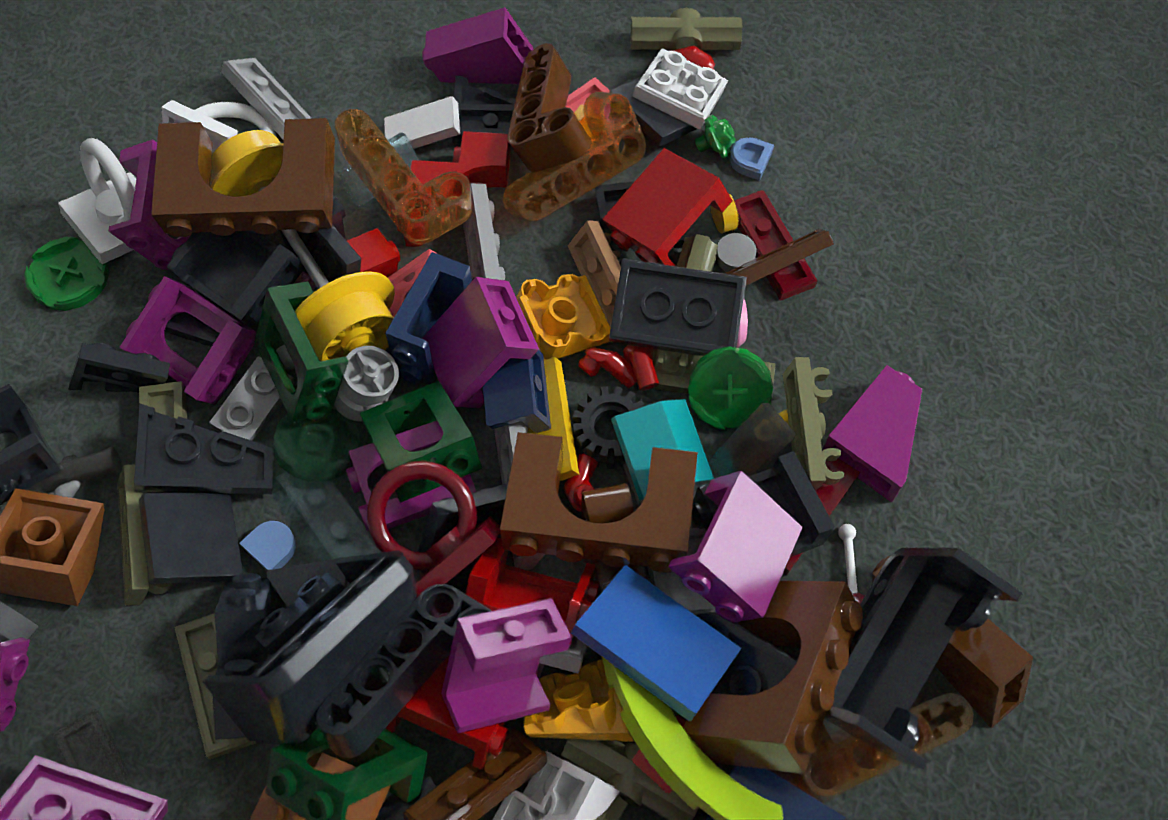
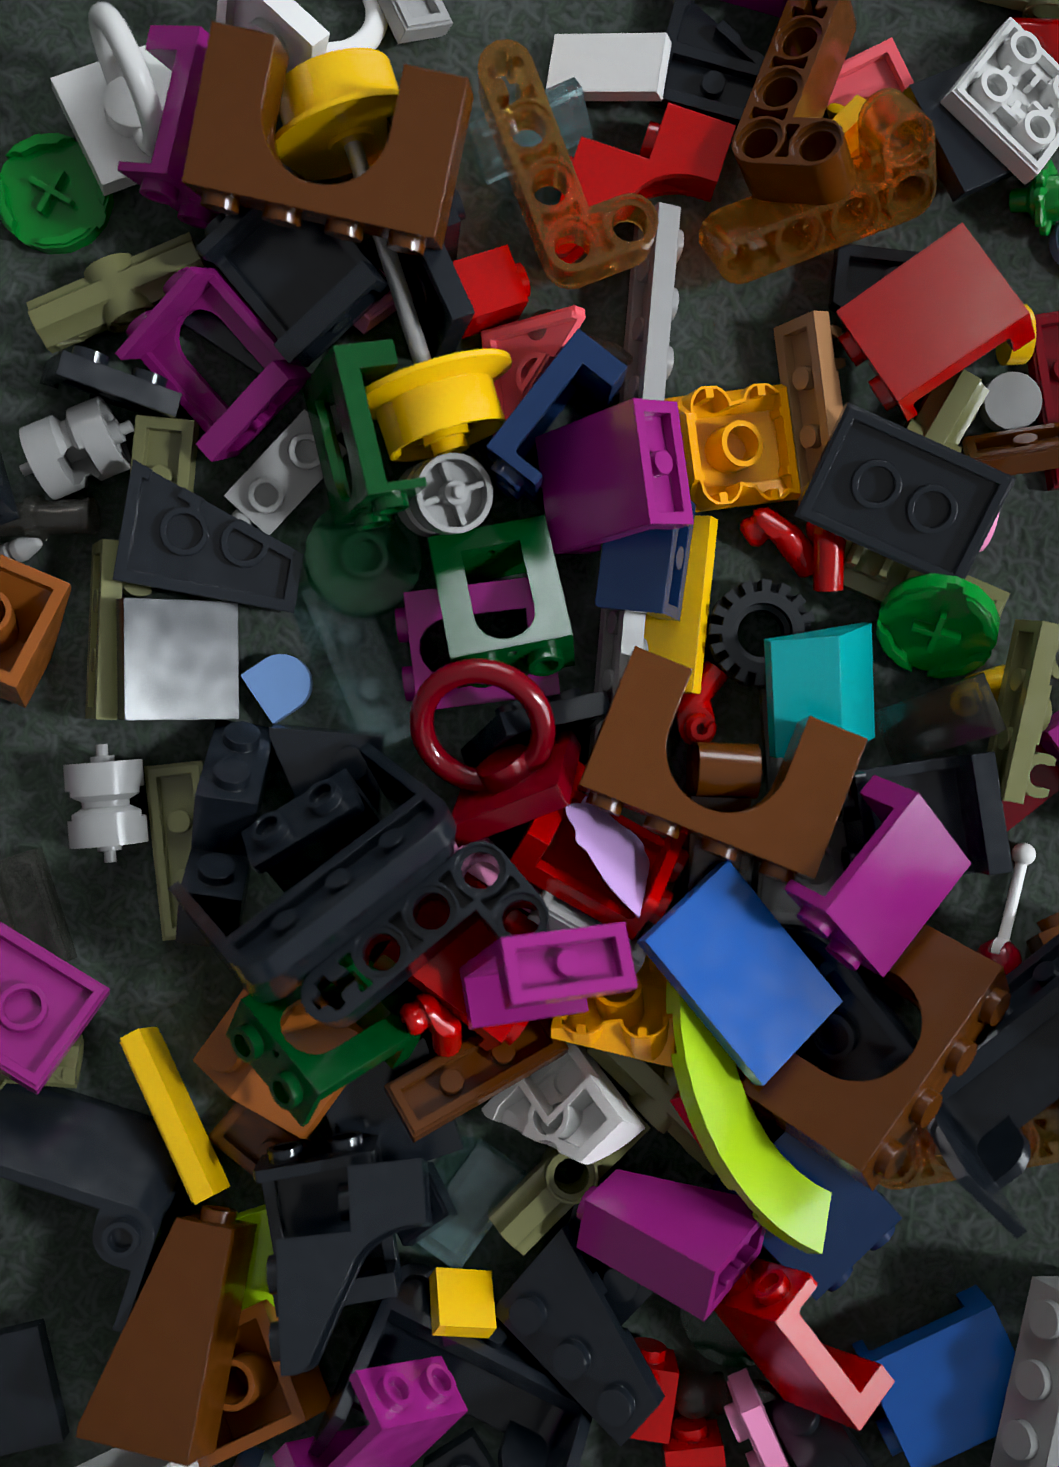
camera: 15 degrees right, 25 degrees up
(98, 416) = (73, 449): none -> light grey wheel
(109, 318) = (110, 293): none -> olive piece
(149, 663) = (106, 811): none -> light grey wheel
(438, 745) = (432, 1014): none -> red arm
(540, 584) = (614, 851): none -> lavender sticker

